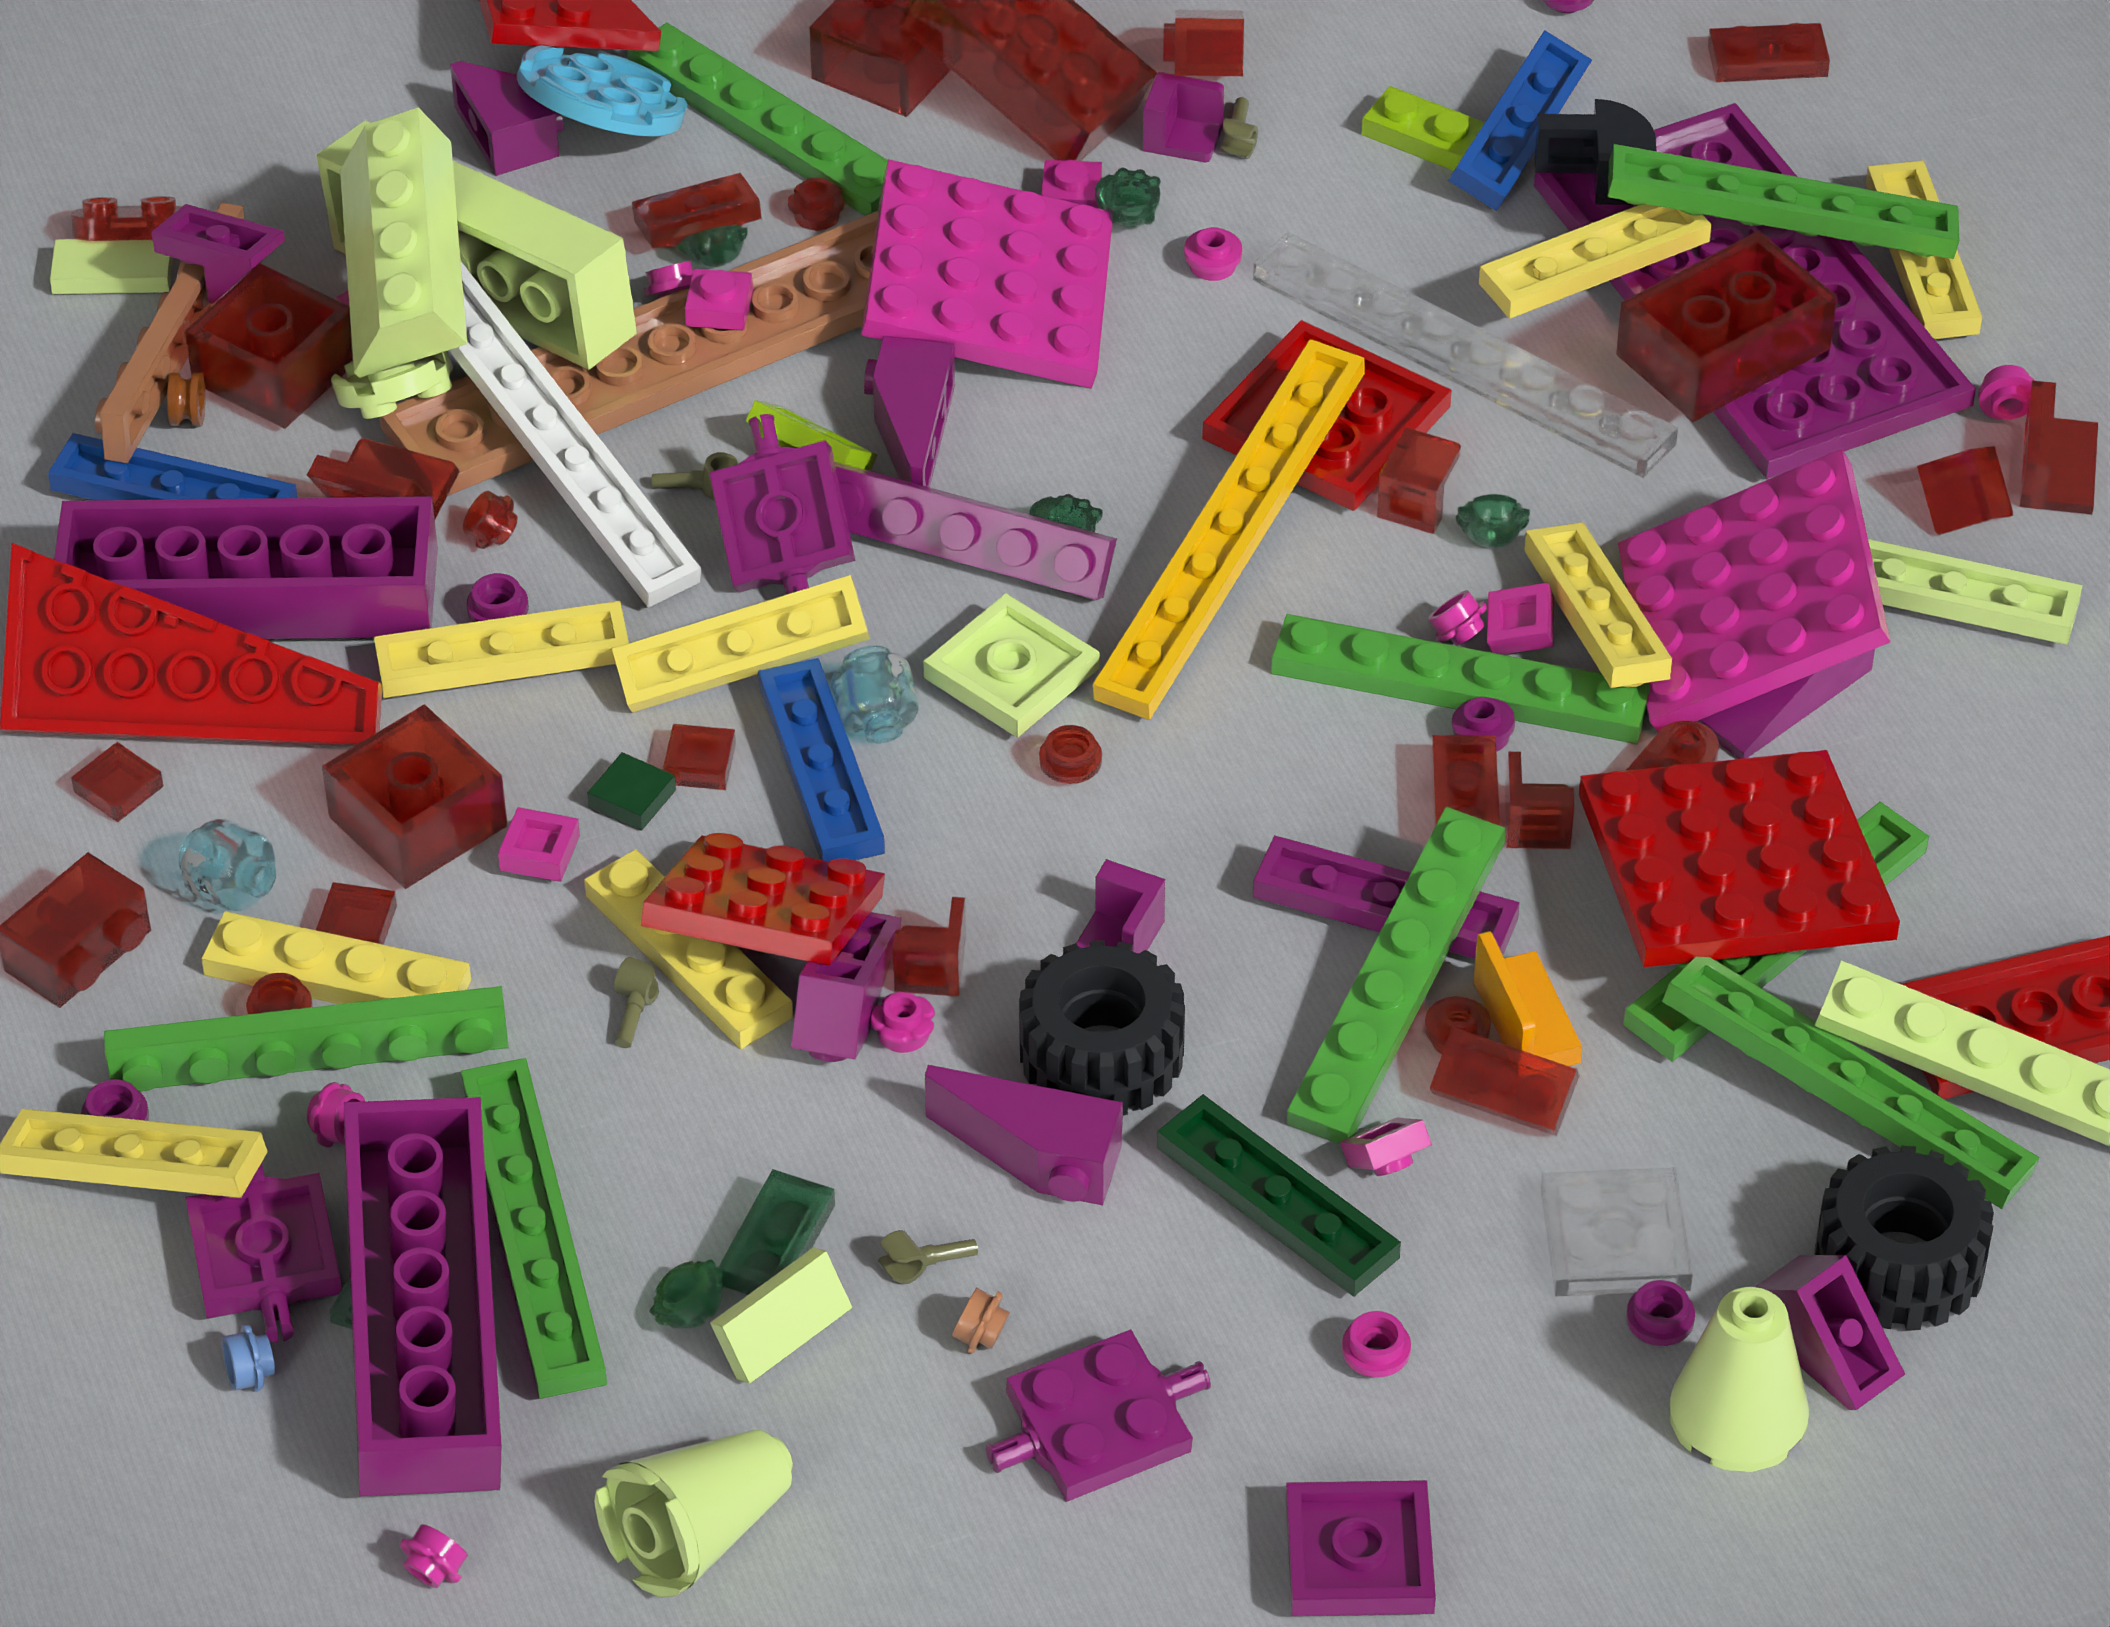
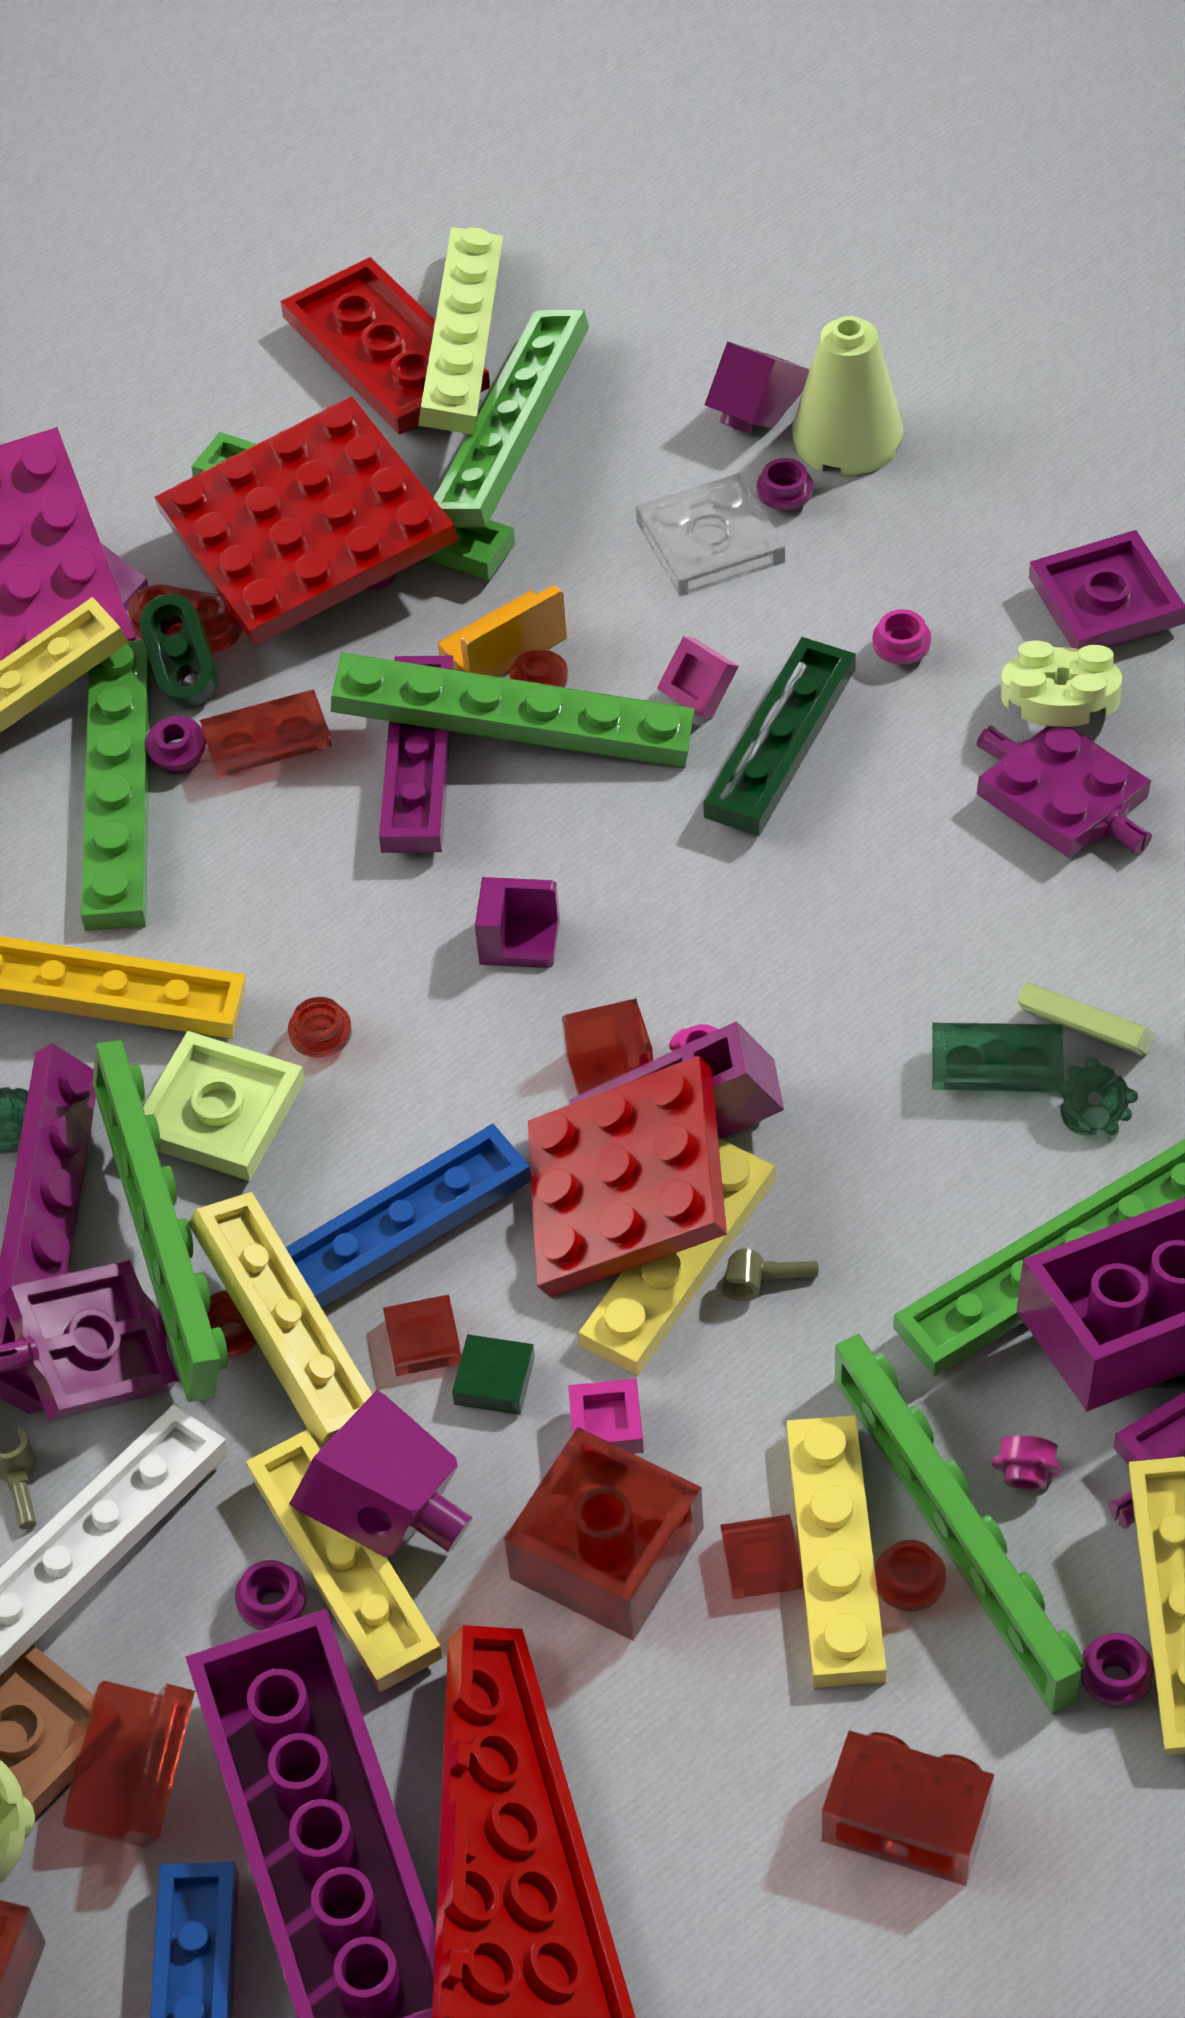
camera: 105 degrees left, 5 degrees up
(117, 781) = (665, 1878): clear red tile -> none
(227, 864) = (758, 1688): clear light blue head -> none
(490, 519) = (154, 1661): clear red plate -> none
(540, 666) = (382, 1482): none -> magenta torso
(875, 694) = (303, 1192): clear light blue head -> none
(879, 567) = (162, 1237): none -> bright green plate
(908, 1261) = (965, 963): olive hand -> none
(981, 1320) = (1011, 900): nougat plate -> none
(1038, 1134) = (799, 901): magenta slope -> none
(1107, 989) = (671, 923): black tyre -> none
(1251, 1419) = (1061, 683): none -> yellowish green plate
(1458, 618) = (36, 792): dark pink plate -> none
(1504, 1081) = (596, 622): clear red plate -> none
(1521, 619) = (39, 745): dark pink plate -> none
(1536, 813) = (268, 683): clear red panel -> none
(1601, 738) = (178, 654): none -> dark green plate
(1918, 1198) = (655, 354): black tyre -> none

